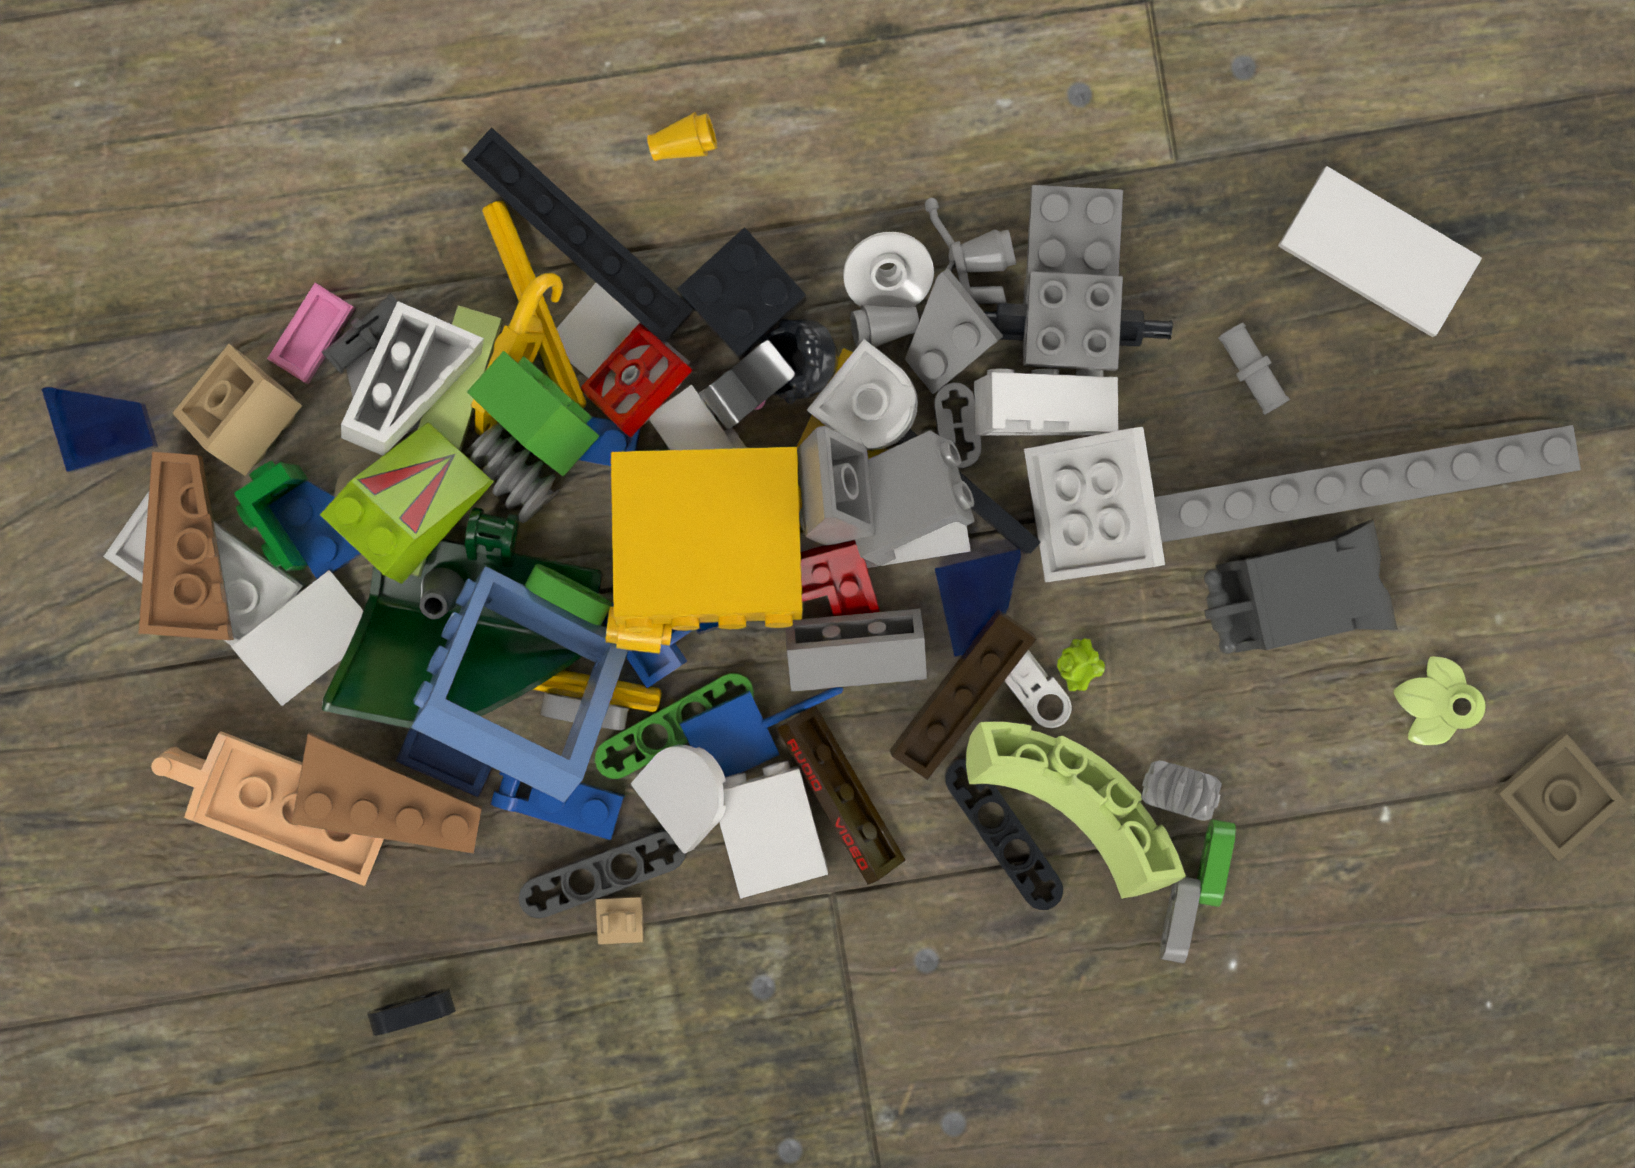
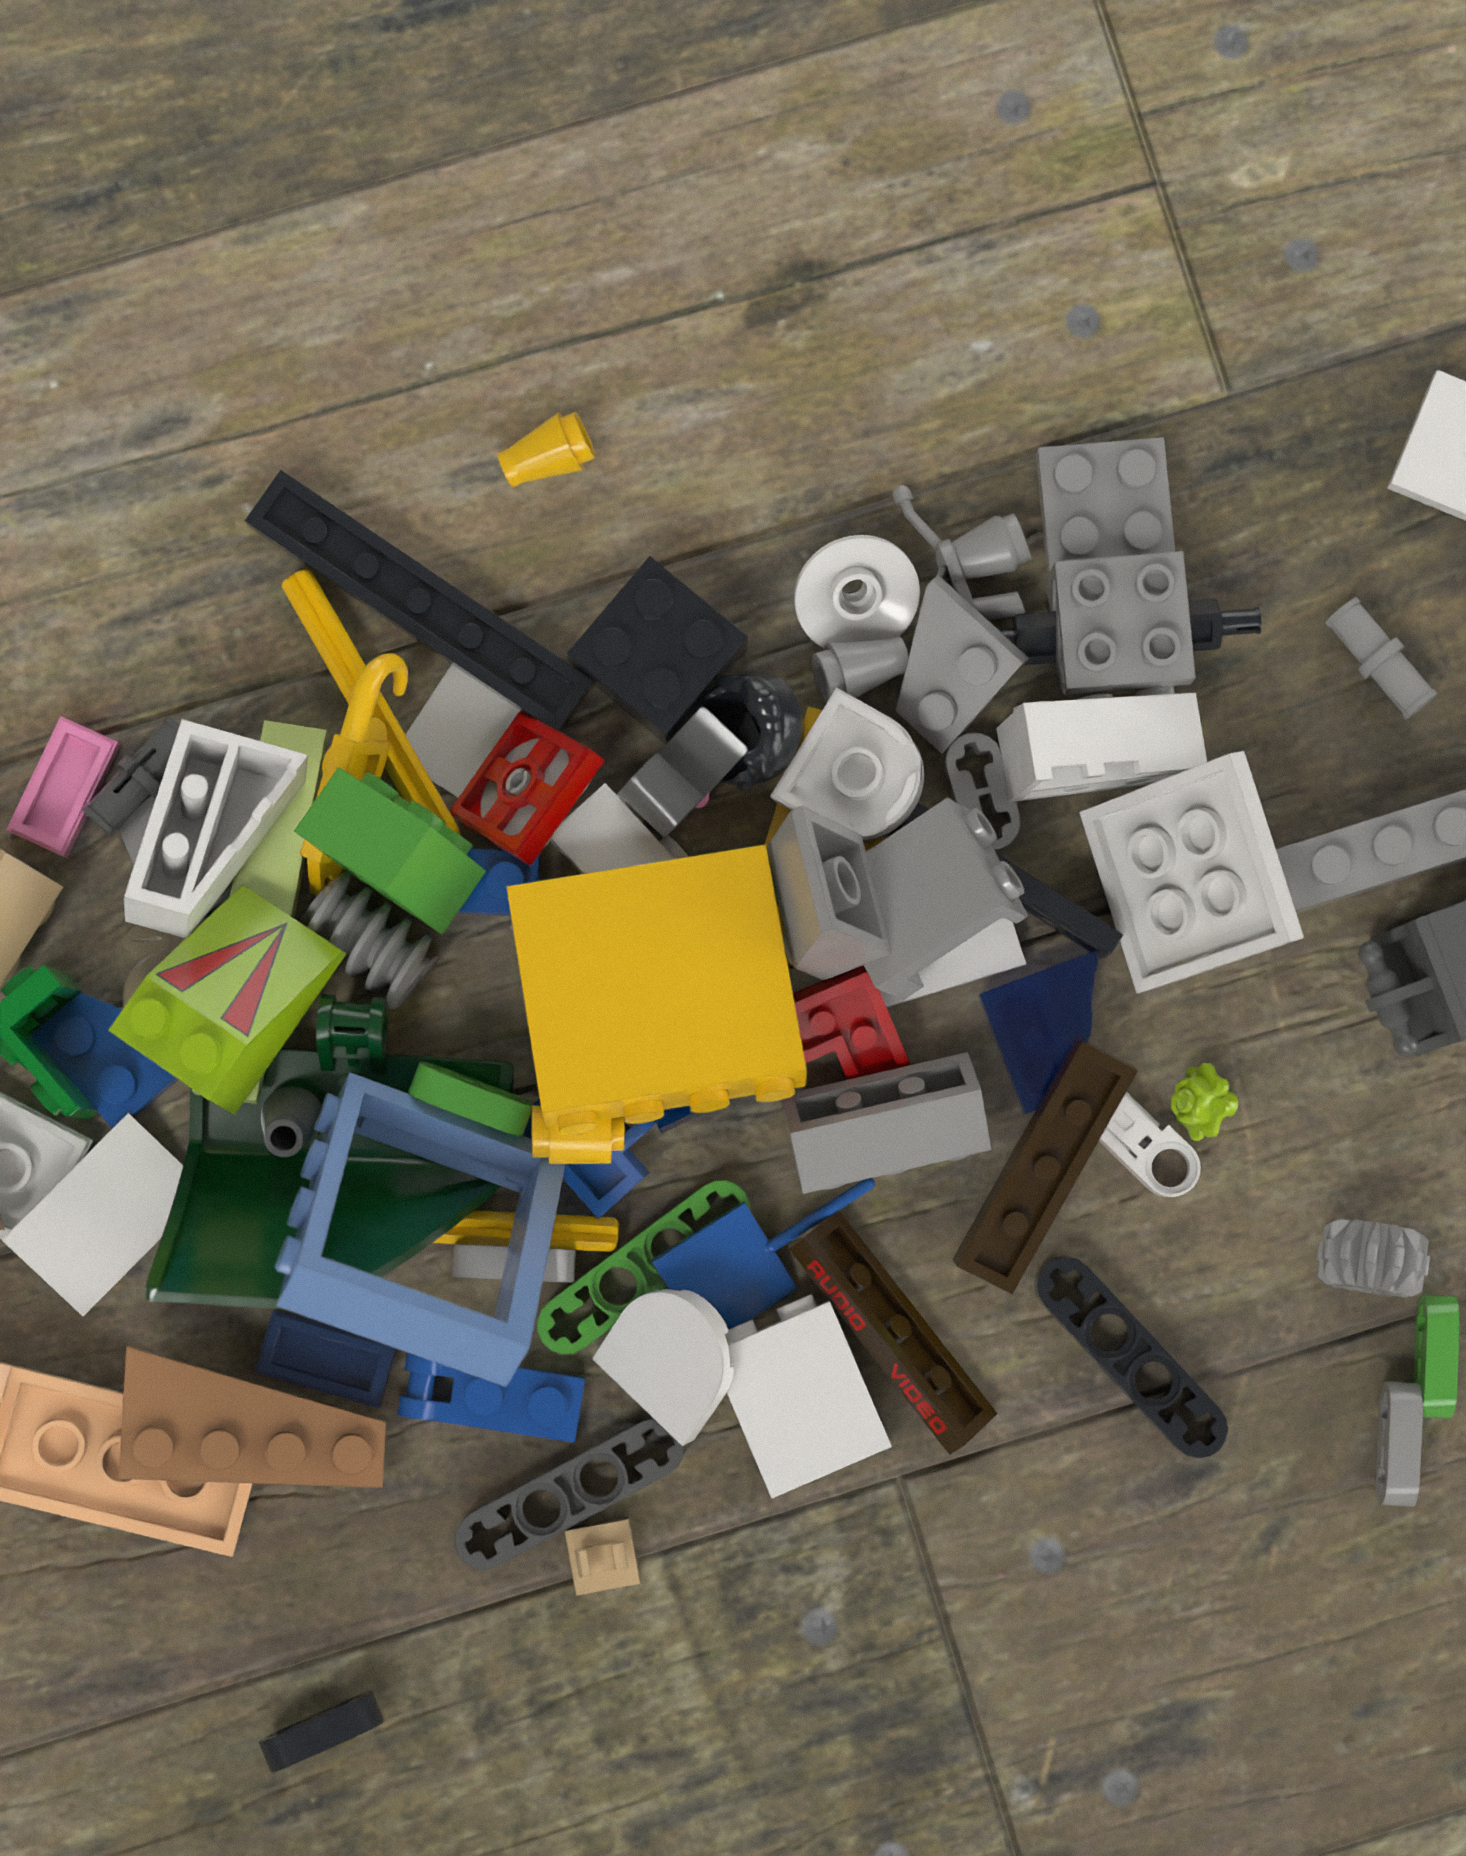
camera: 10 degrees left, 5 degrees down
(1084, 791) = (1238, 1281): yellowish green brick -> none

